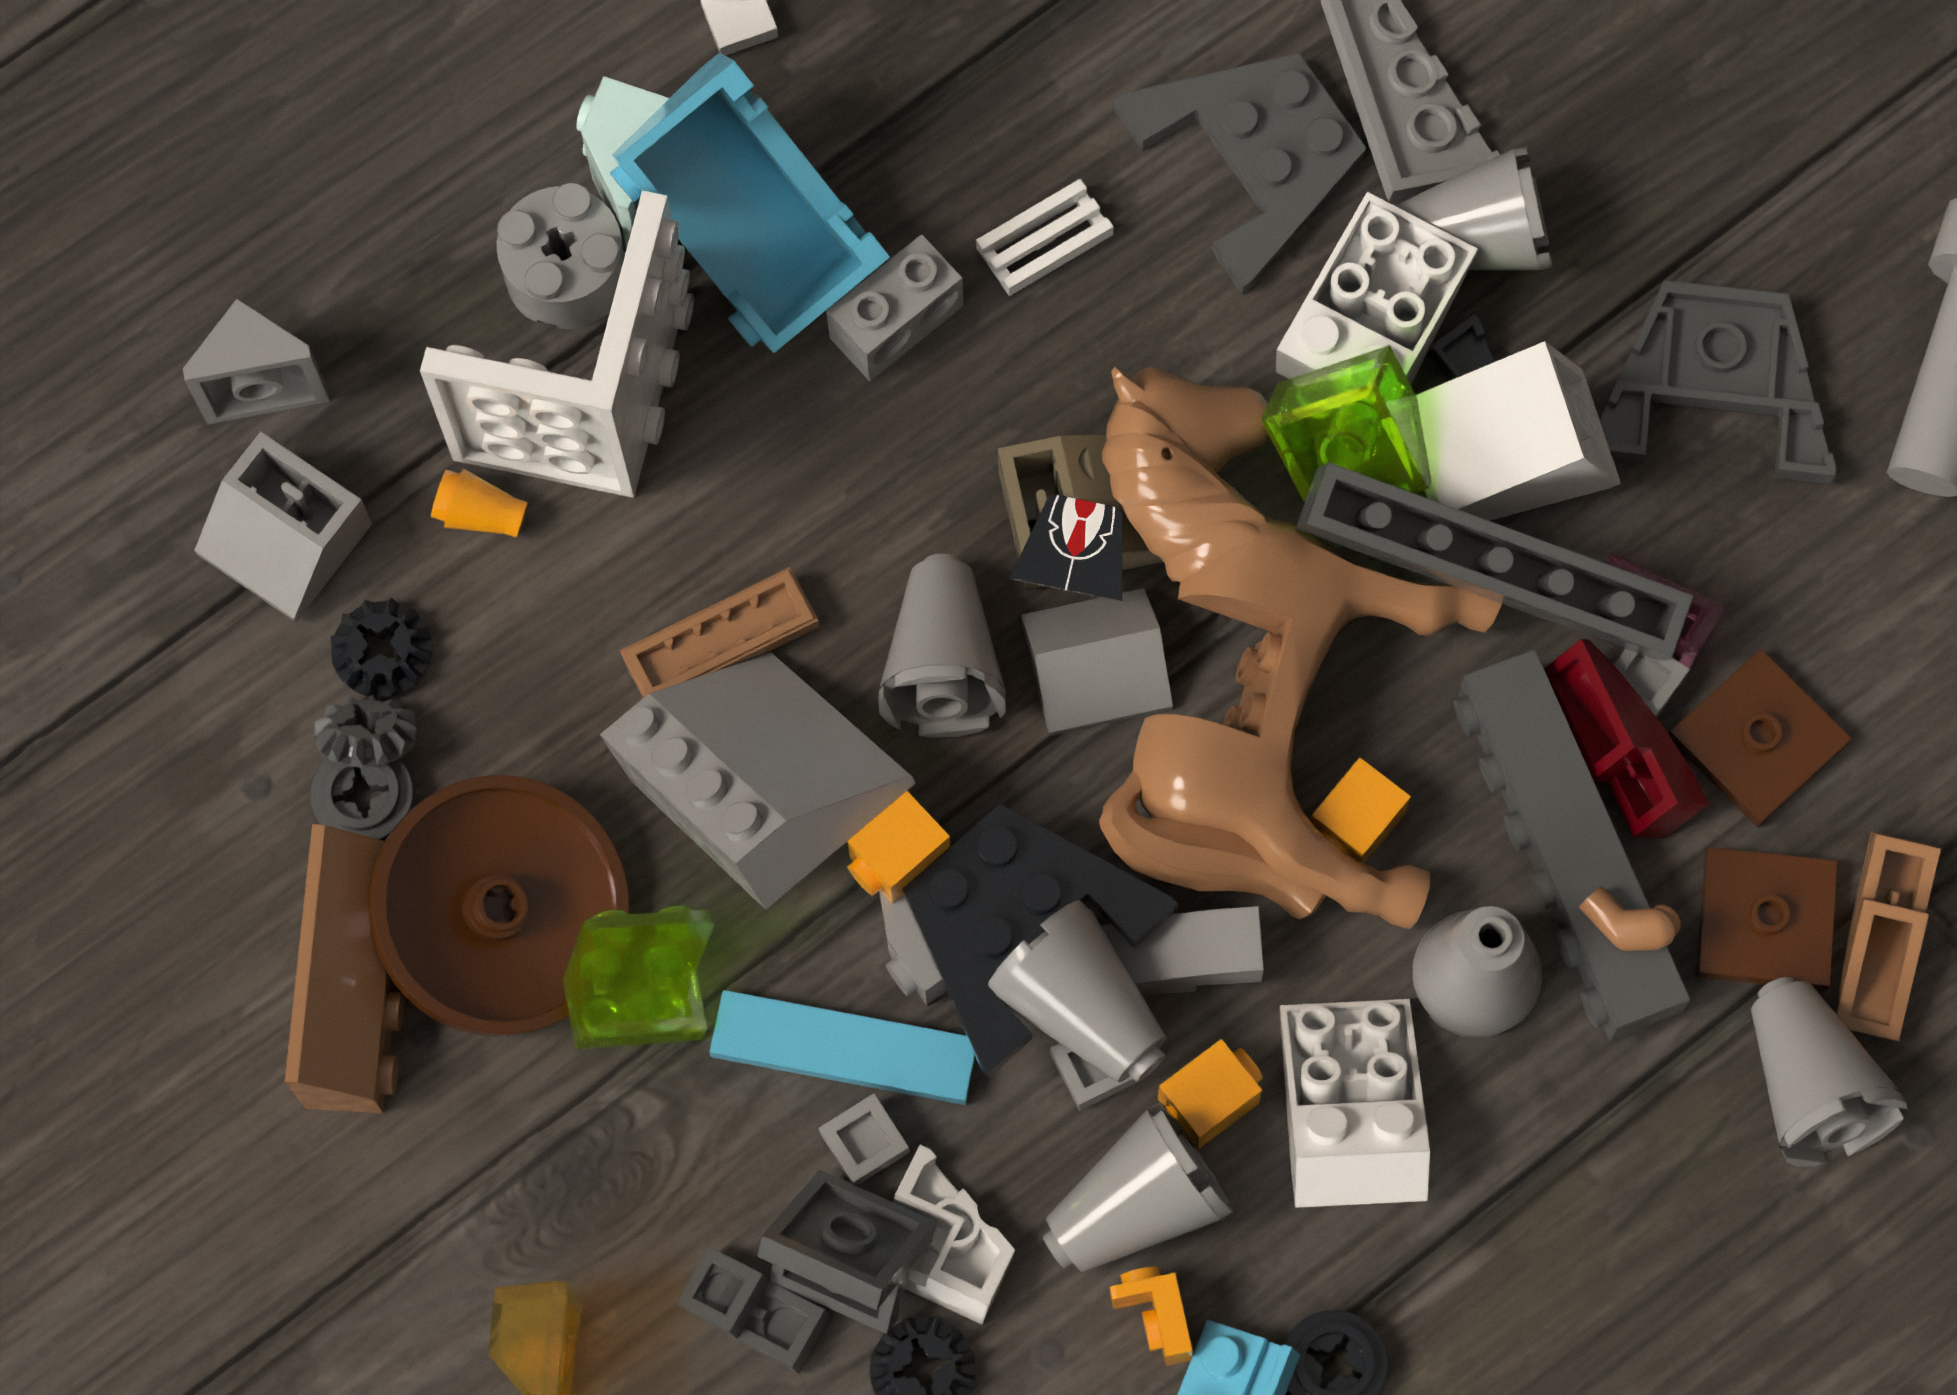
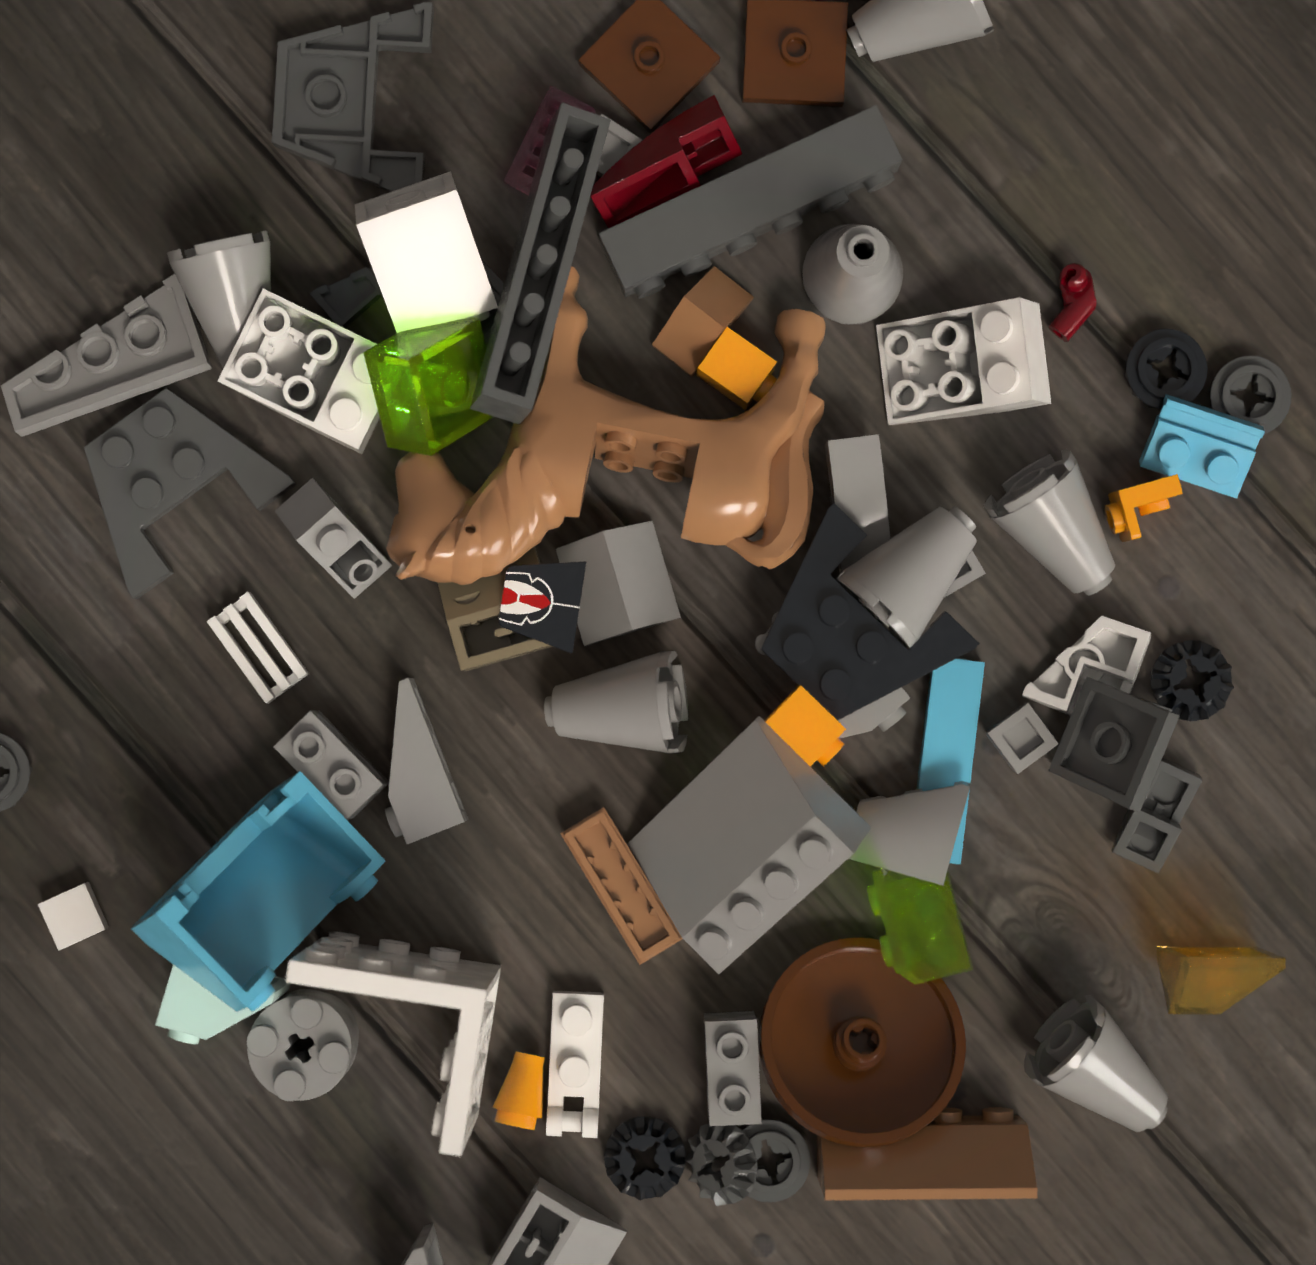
camera: 100 degrees left, 15 degrees up
(432, 1201) = (1096, 1066): none -> light grey cone
(478, 743) = (732, 1068): none -> light grey brick
(506, 573) = (575, 1061): none -> white plate
(756, 984) = (913, 831): none -> light grey slope
(873, 408) = (420, 780): none -> light grey slope
(1174, 319) = (332, 538): none -> light grey slope
(1212, 1092) = (967, 471): light orange brick -> none
(1430, 1257) = (1078, 301): none -> dark red arm
(1441, 786) = (701, 320): none -> medium nougat slope
(1633, 928) = (829, 149): medium nougat arm -> none

